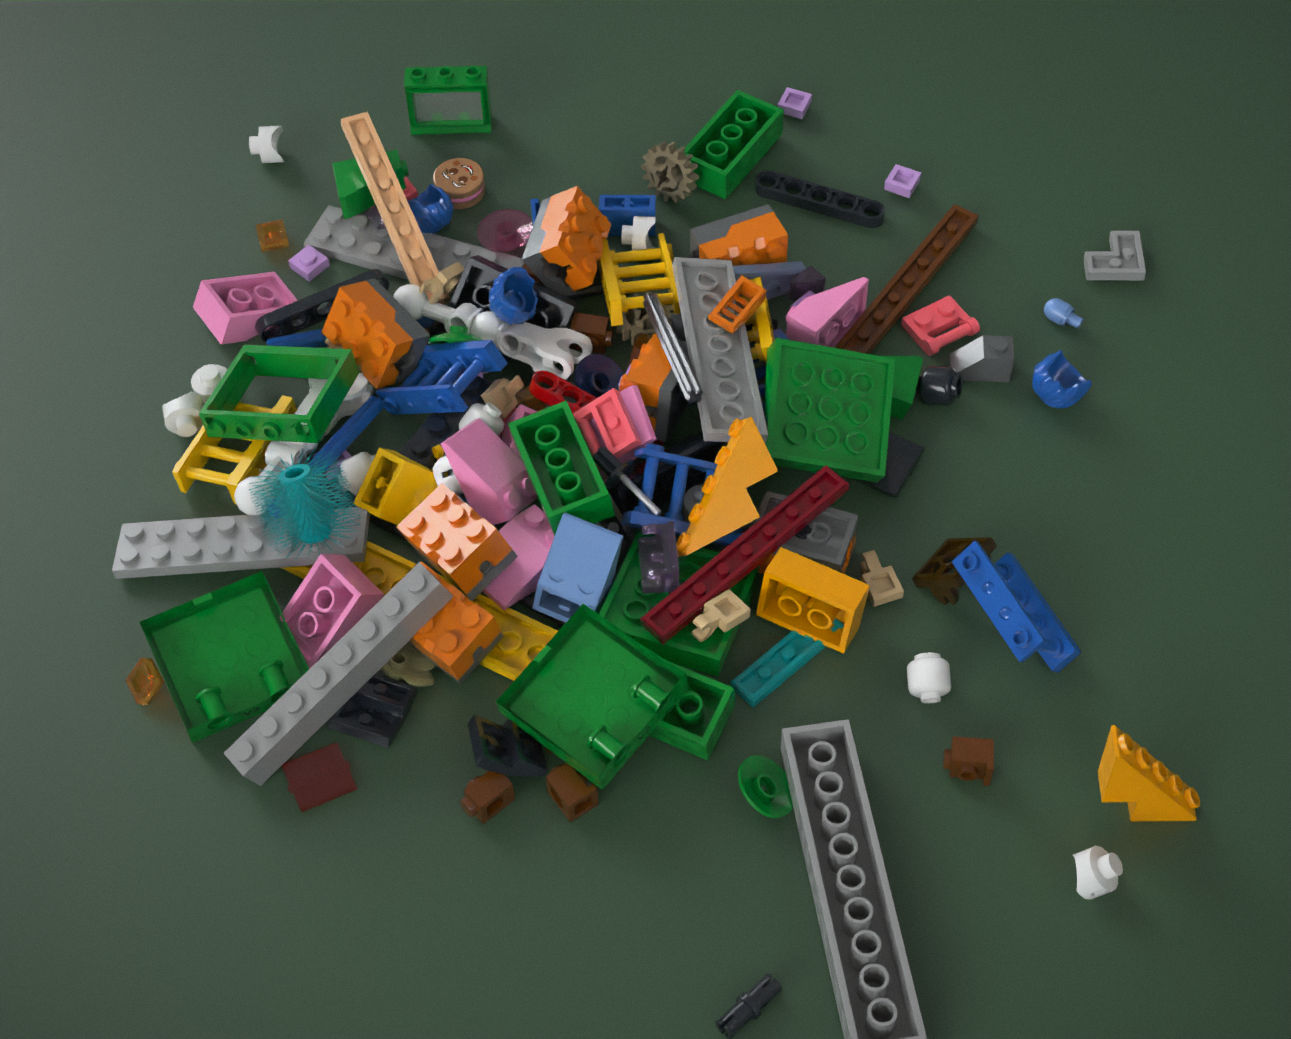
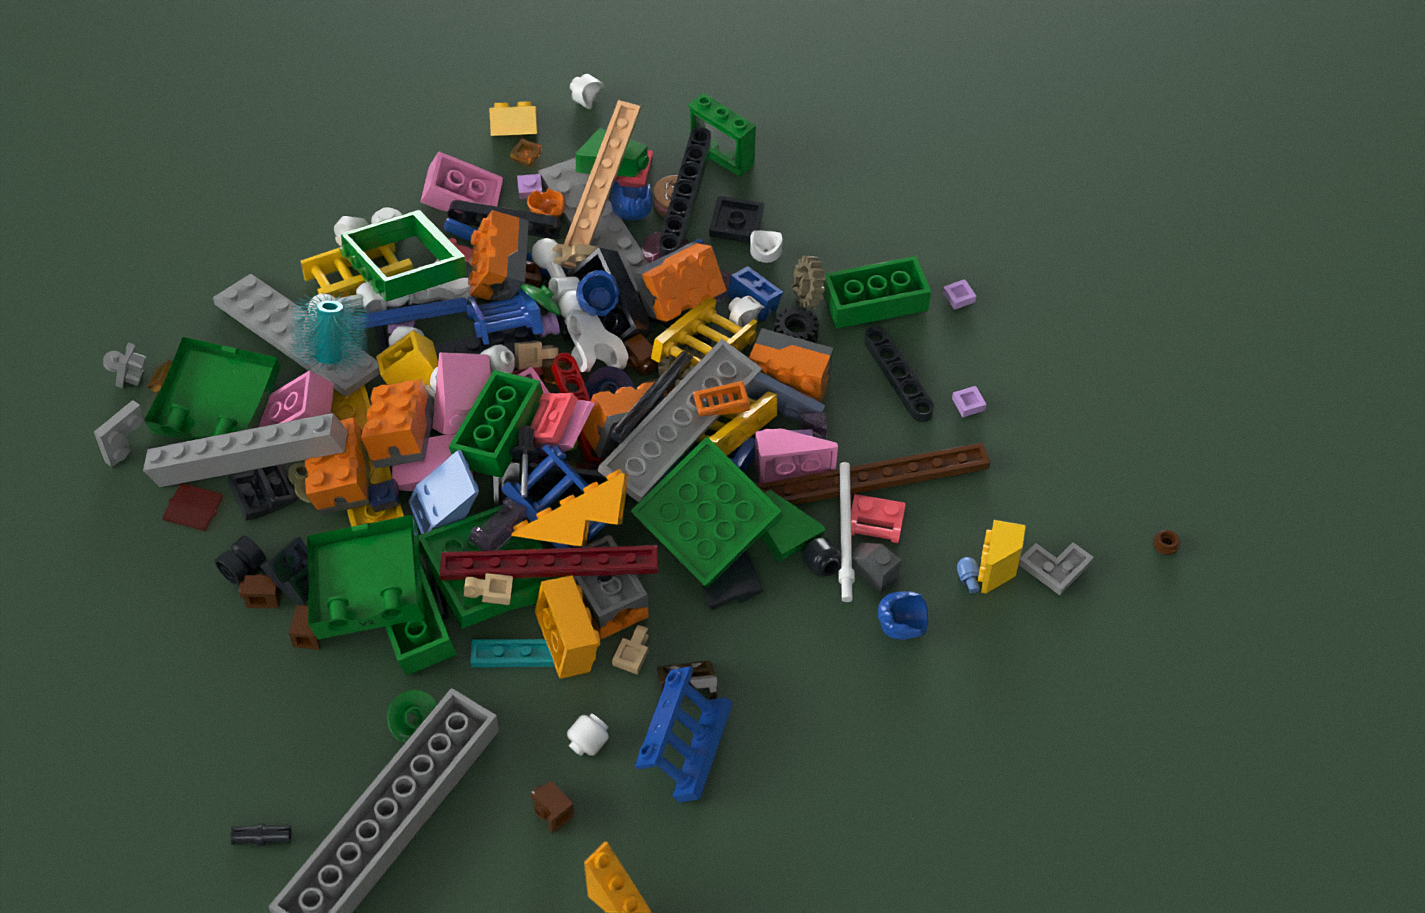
camera: 40 degrees right, 0 degrees up
(100, 696) = (127, 367): none -> light grey hips
(174, 763) = (113, 433): none -> light grey plate
(227, 212) = (513, 120): none -> yellow slope
(350, 262) = (546, 203): none -> orange hair
(436, 783) = (236, 563): none -> black wheel
(480, 170) = (685, 191): none -> black beam
(511, 617) = (384, 495): none -> dark blue plate
(536, 166) = (736, 218): none -> black plate
(593, 168) = (766, 245): none -> white piece
(692, 209) = (798, 318): none -> black tyre
(977, 383) = (846, 573): none -> white bar
(1075, 274) = (1000, 554): none -> yellow slope
(1171, 182) = (1169, 537): none -> reddish brown plate

